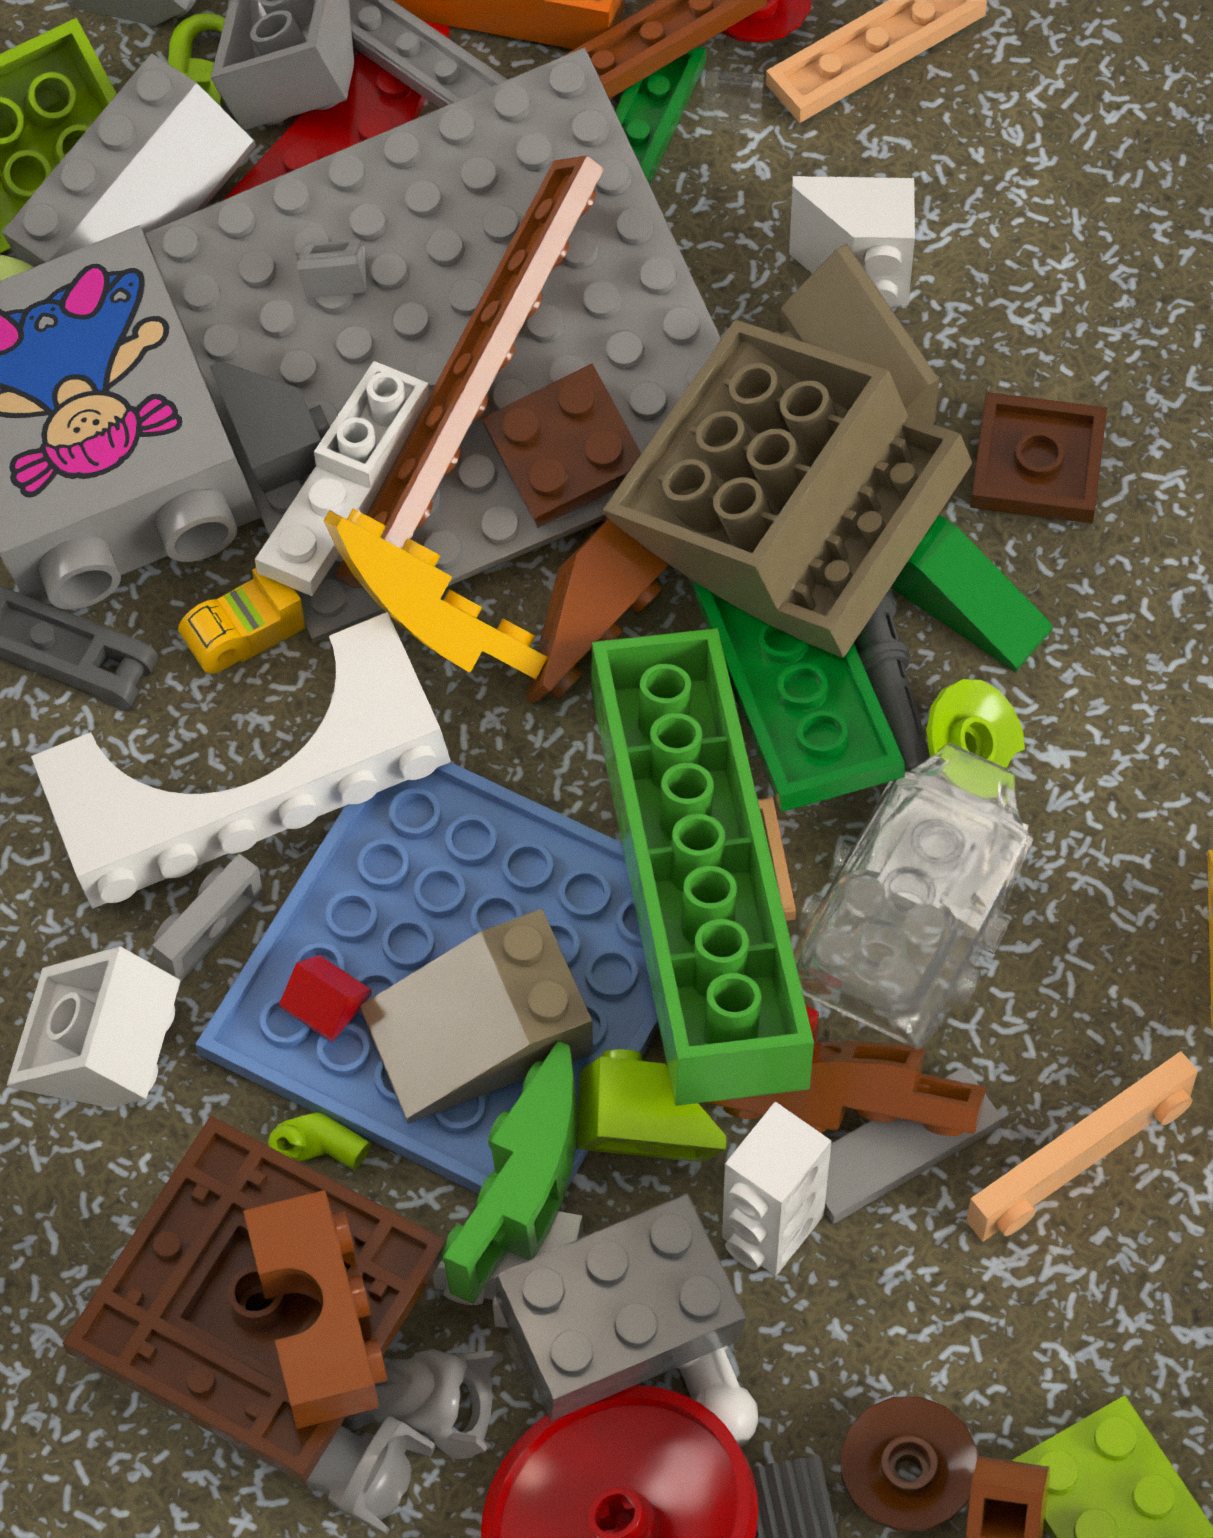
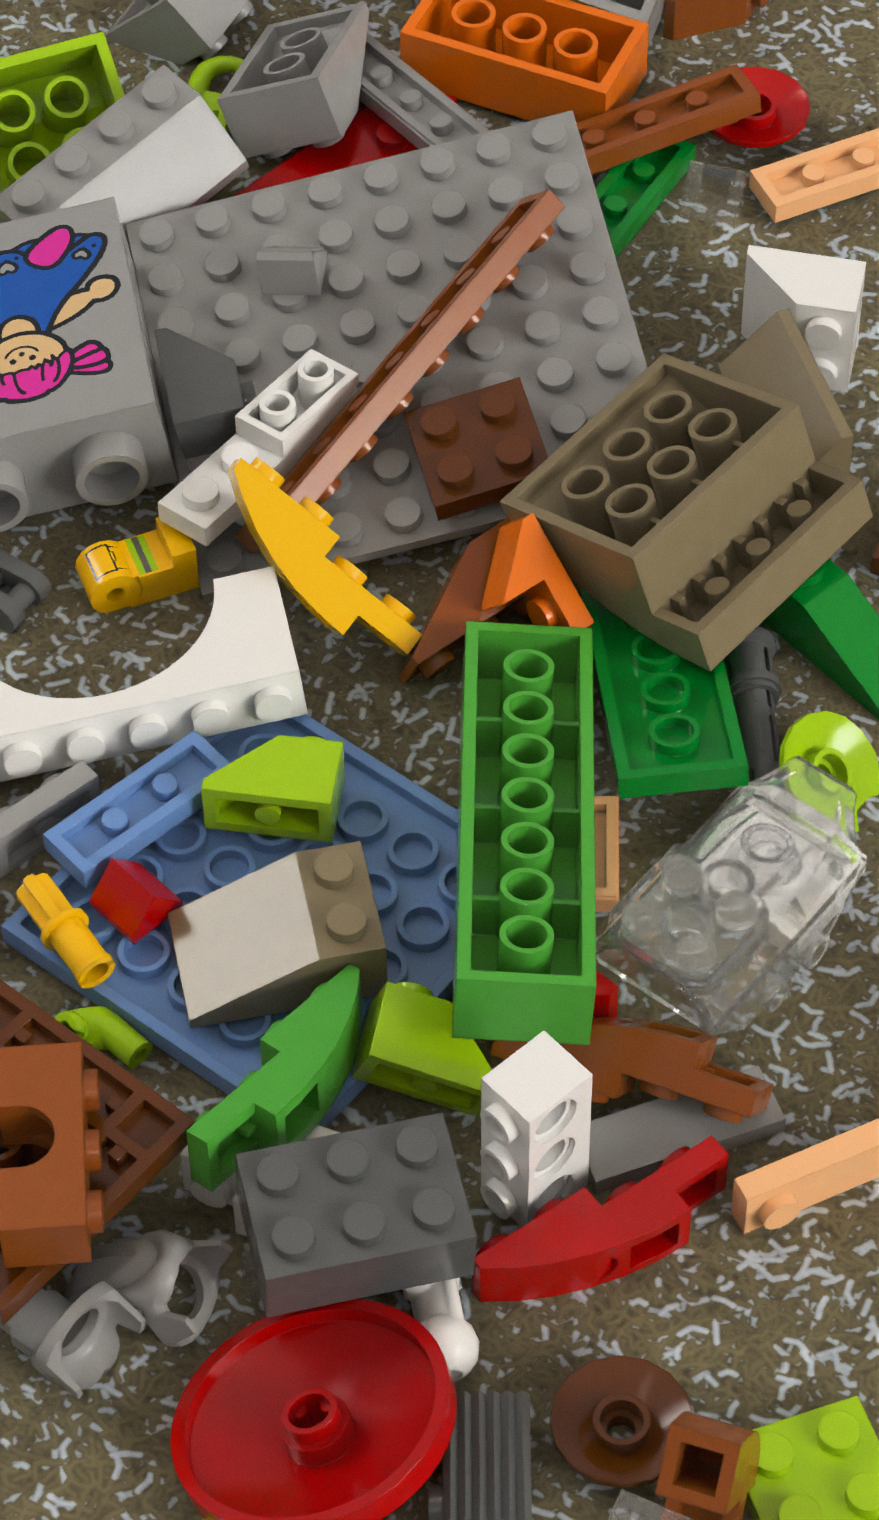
camera: 10 degrees right, 10 degrees down
(263, 1042) = (65, 930): none -> yellow axle
(308, 898) = (134, 810): none -> medium blue plate
(444, 855) = (279, 790): none -> lime slope
(642, 575) = (530, 566): none -> orange slope
(838, 1284) = (584, 1244): none -> red slope

